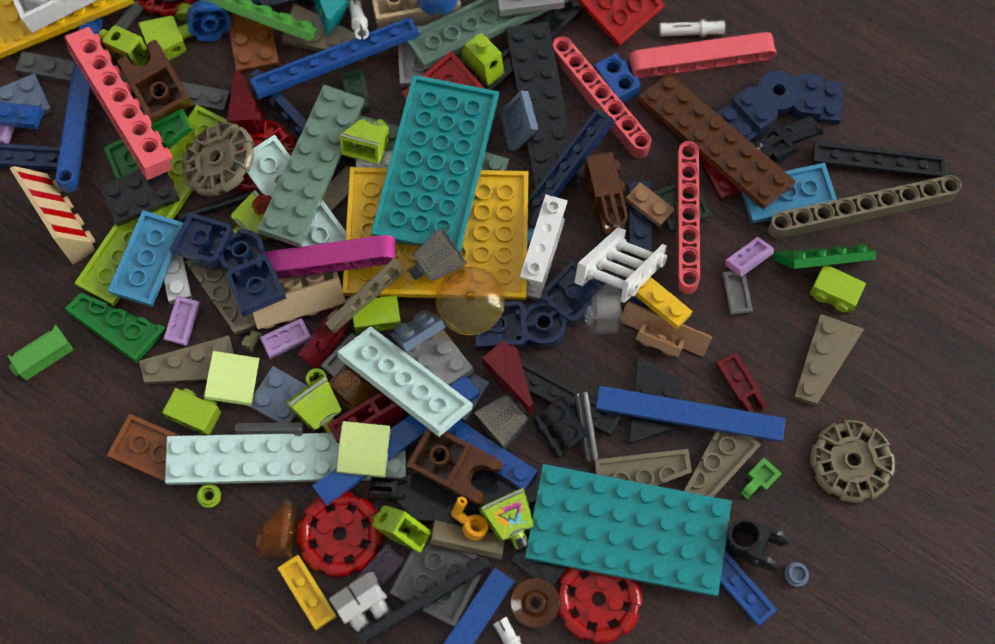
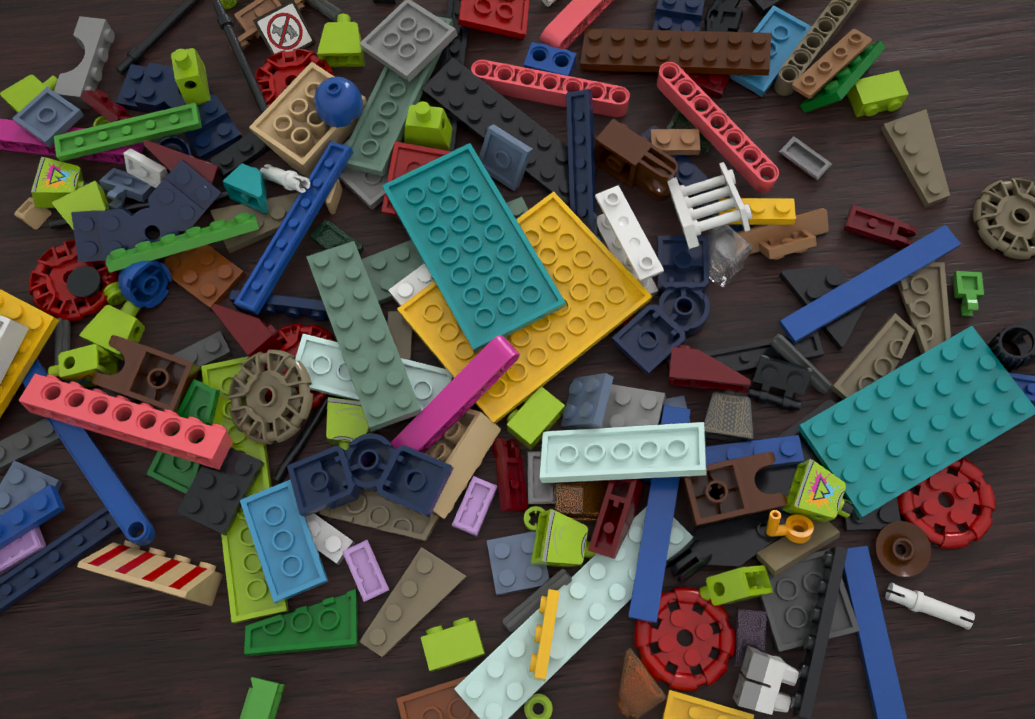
camera: 35 degrees left, 0 degrees up
(231, 378) = (463, 583): yellowish green slope -> none
(248, 450) = (544, 635): none -> yellow plate
(250, 342) = (445, 534): olive tile -> none
(261, 203) = (349, 403): clear red plate -> none
(363, 449) = (645, 544): yellowish green slope -> none
(365, 140) = (391, 274): lime torso -> none
(369, 291) = (513, 448): dark tan wing -> none
(381, 58) = (333, 198): none -> tan slope
(437, 257) = (553, 322): dark grey torso -> none
(473, 315) = (605, 353): clear yellow dish -> none
(749, 256) = (788, 122): lavender plate -> none
(819, 238) = (831, 63): none -> medium nougat bracket

